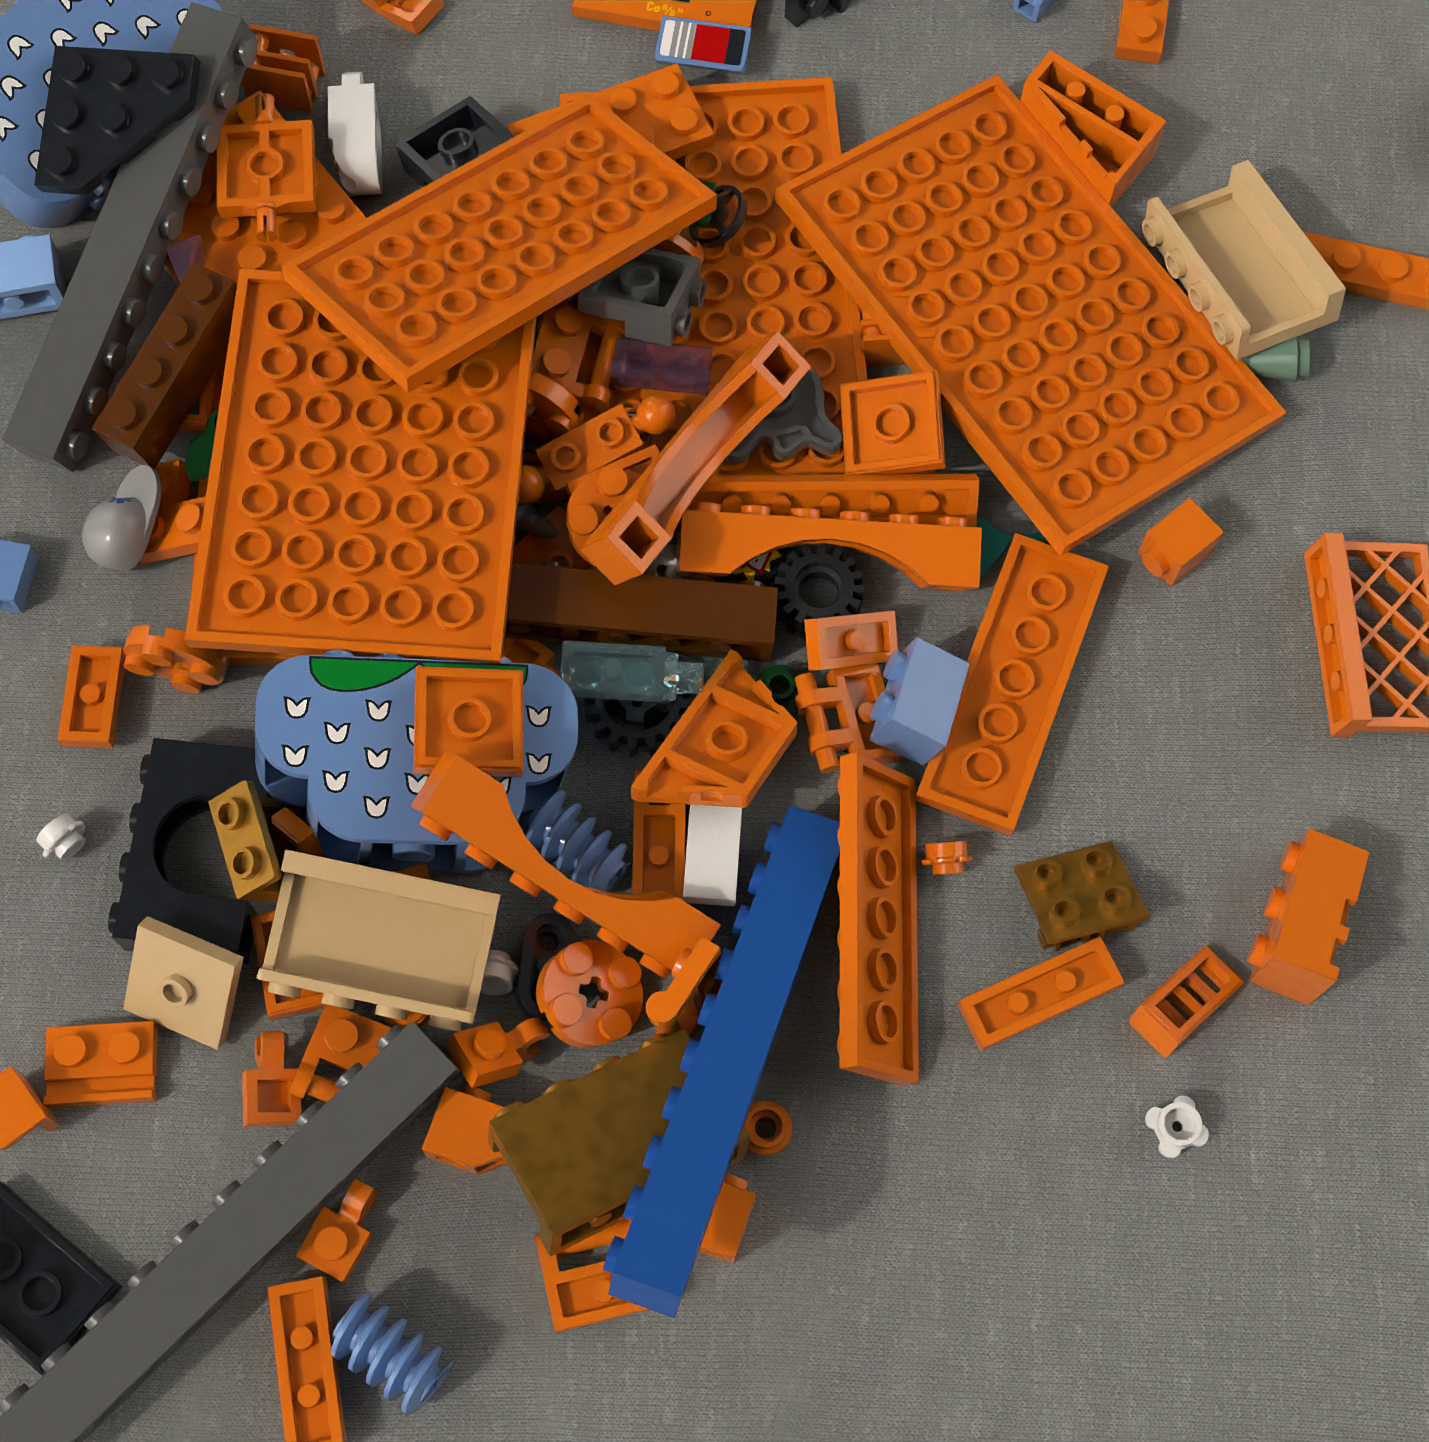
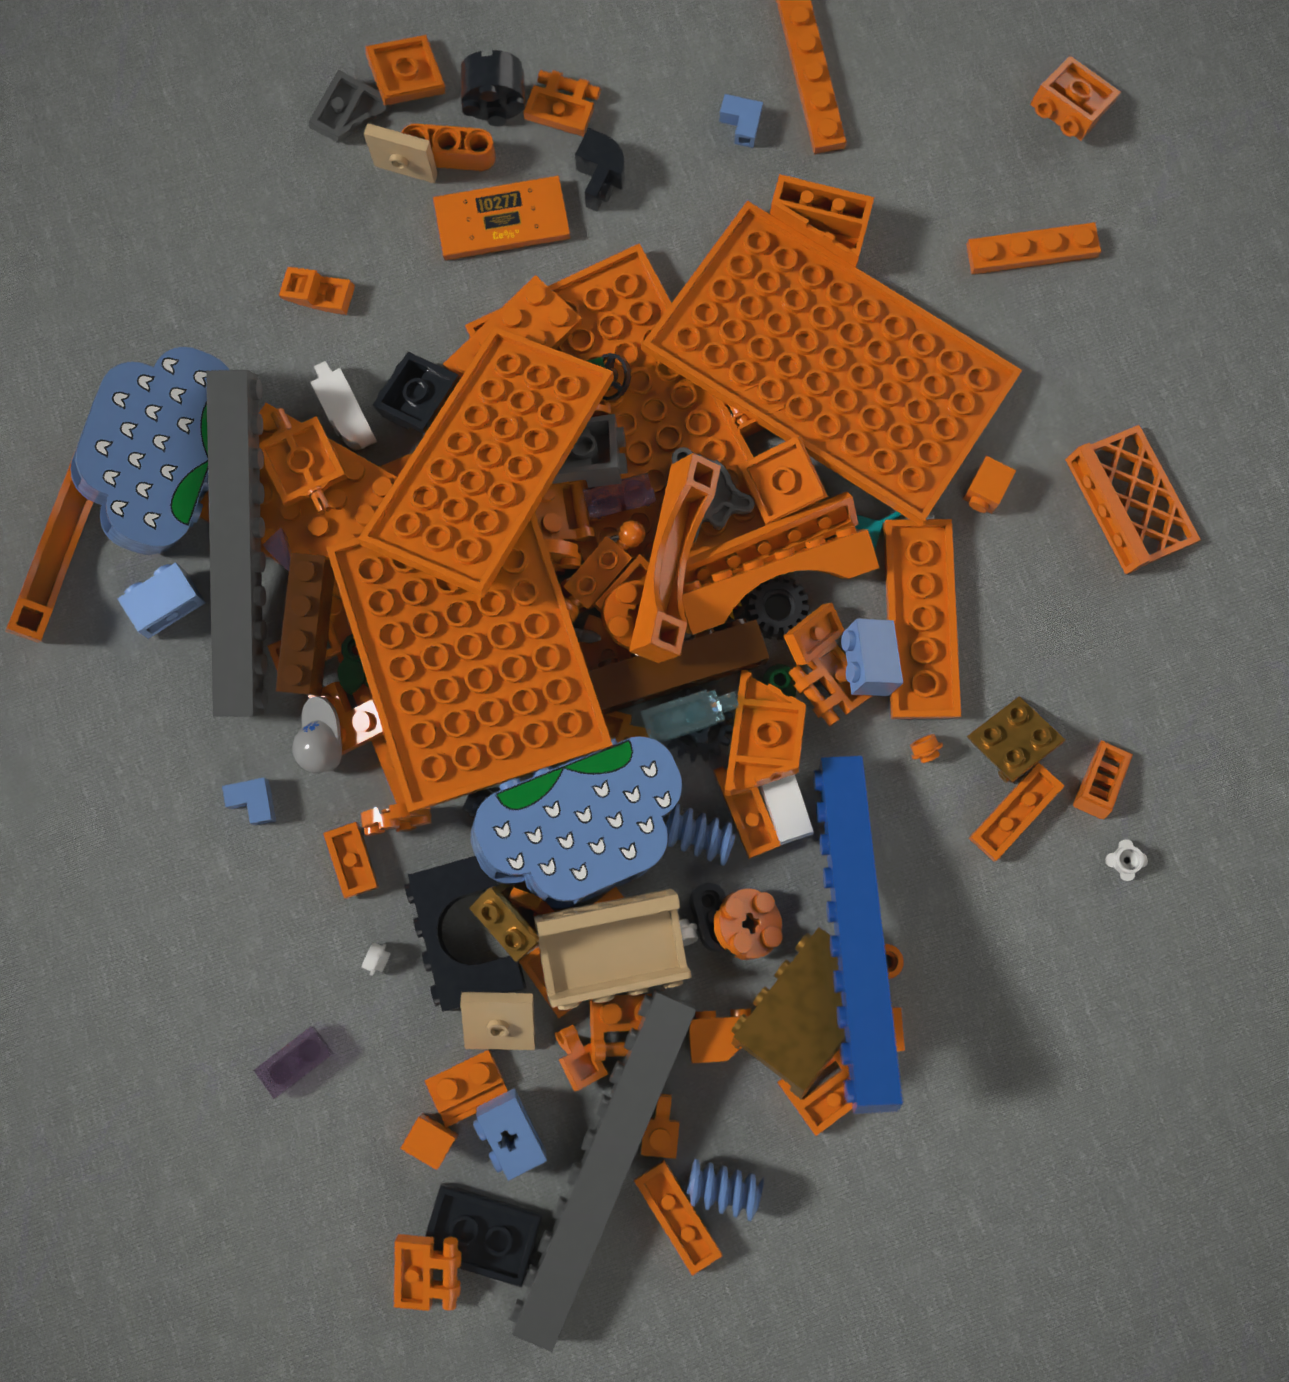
camera: 20 degrees left, 10 degrees up
(107, 110) = (184, 469): black plate -> none
(130, 1177) = (509, 1114): none -> medium blue brick
(285, 75) = (276, 378): orange piece -> none
(471, 716) = (613, 795): orange plate -> none
(476, 809) = (646, 853): orange arch -> none
(491, 1055) = (707, 985): orange plate -> none
(683, 1000) = (811, 894): orange plate -> none
(703, 45) = (543, 251): slope -> none
(877, 922) = (903, 808): orange plate -> none
(1245, 264) = (959, 277): tan panel -> none
(1282, 361) = (1002, 333): sand green cone -> none
(1308, 917) = (1158, 700): orange wedge -> none

